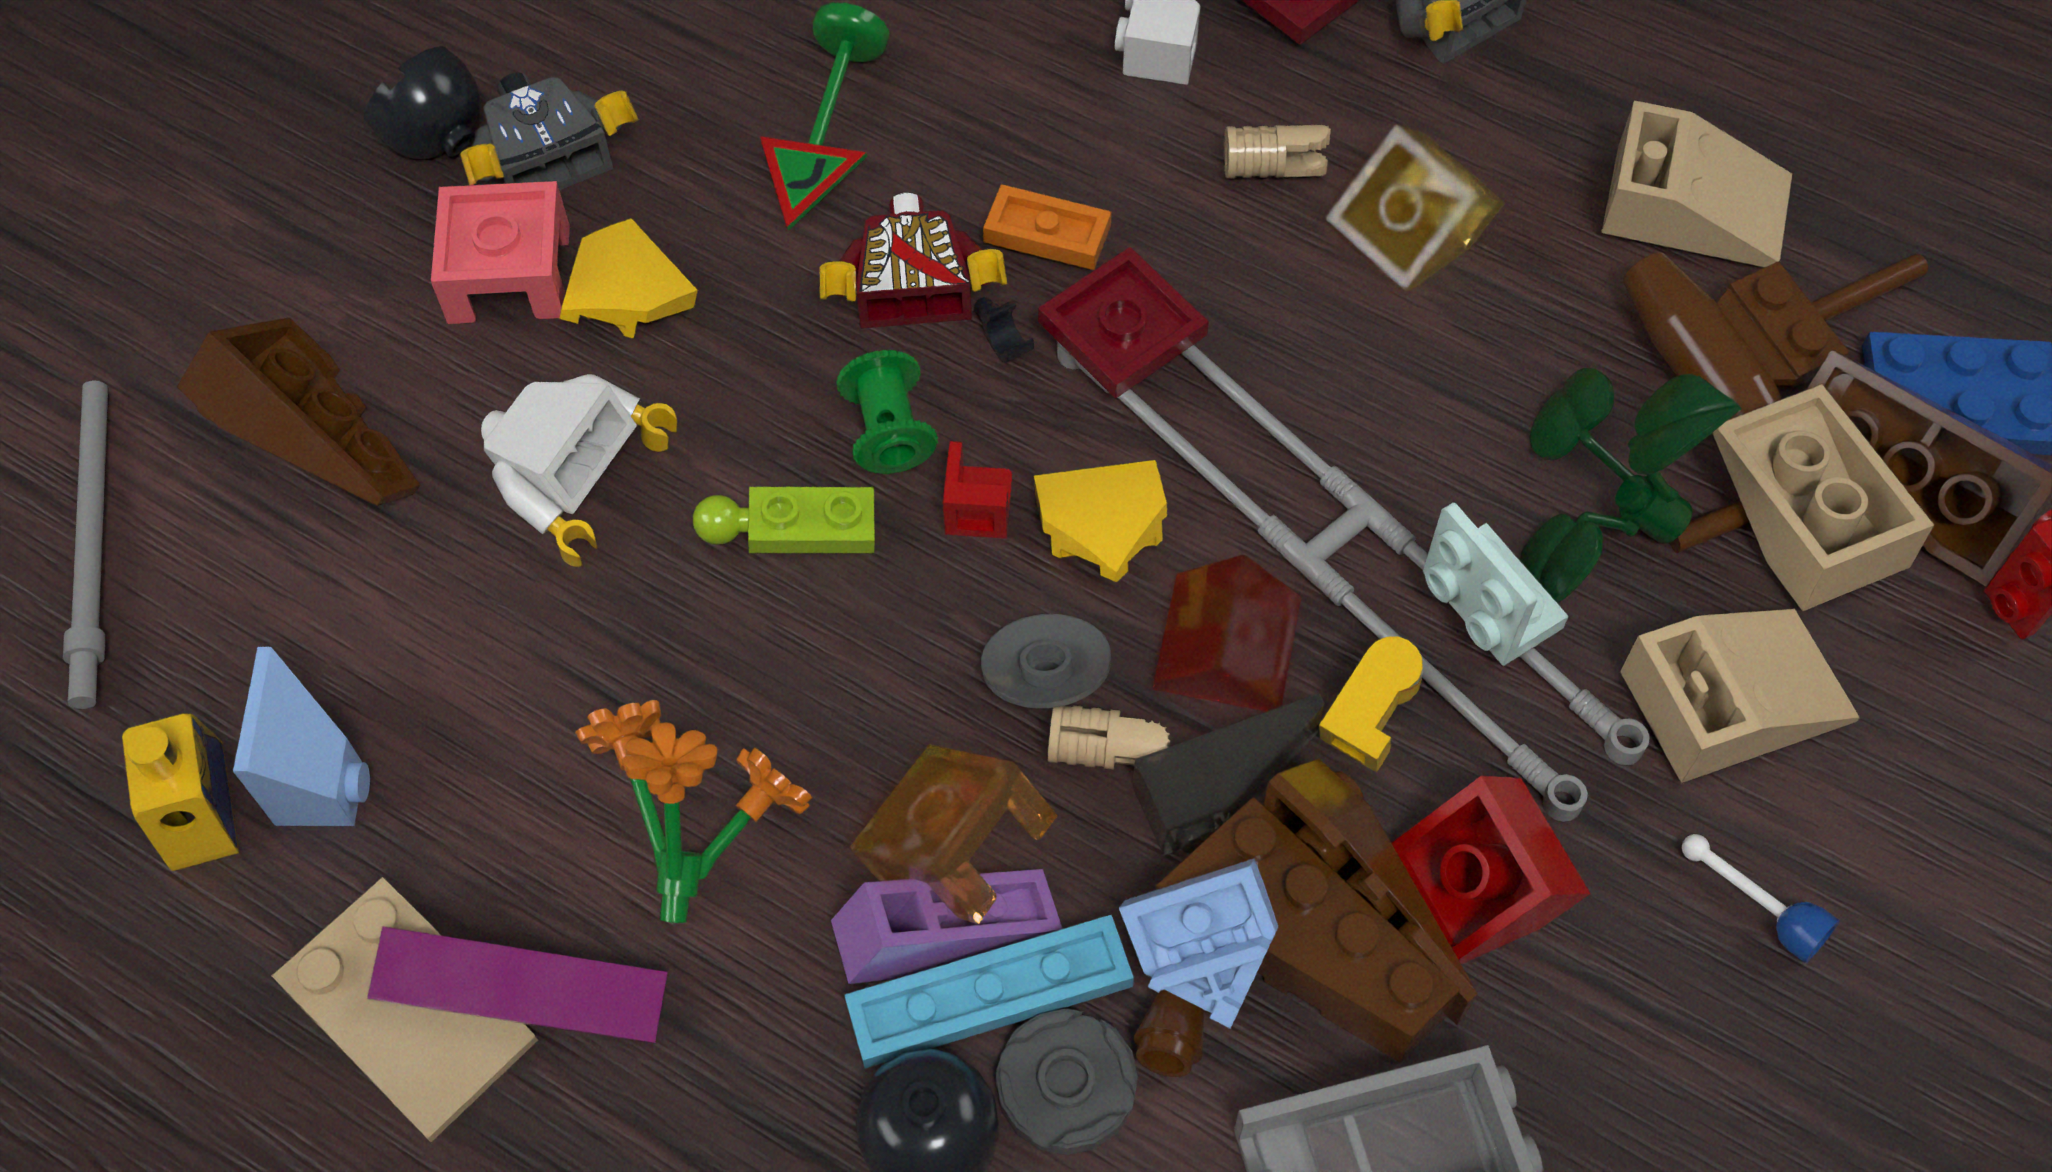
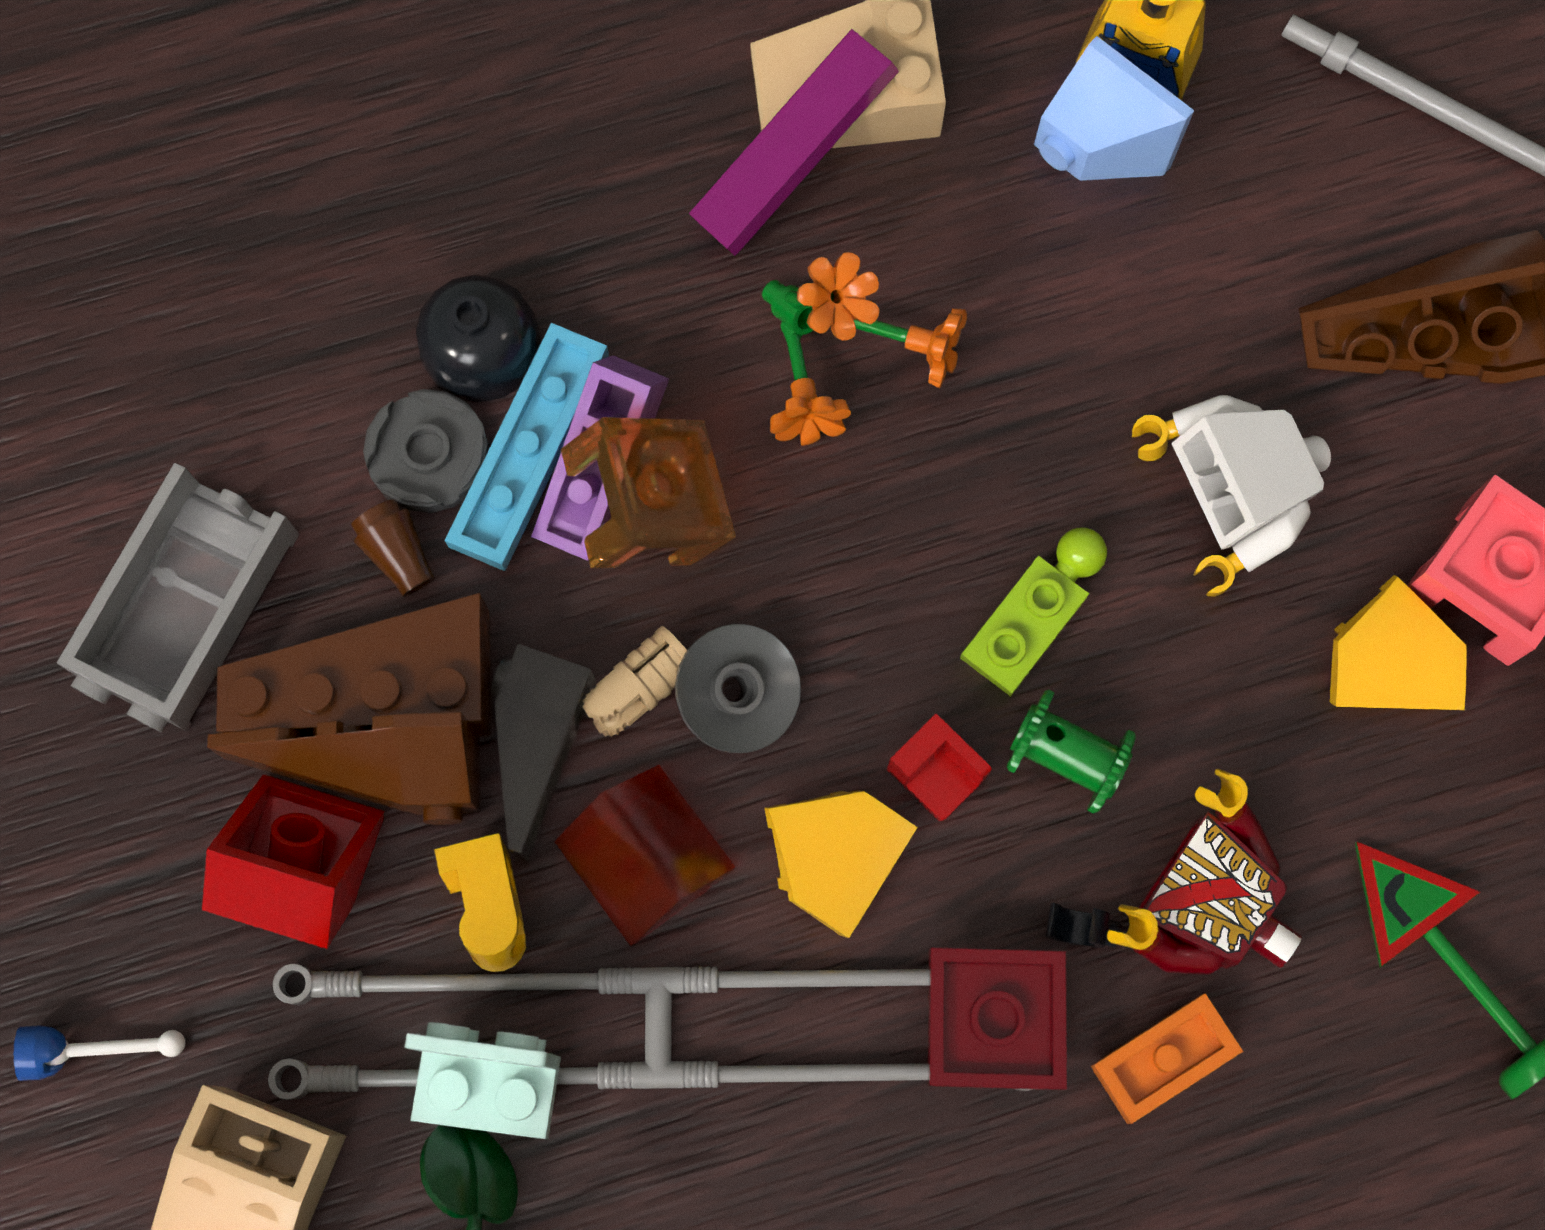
camera: 130 degrees right, 15 degrees up
(1204, 937) = (412, 589): light blue slope -> none

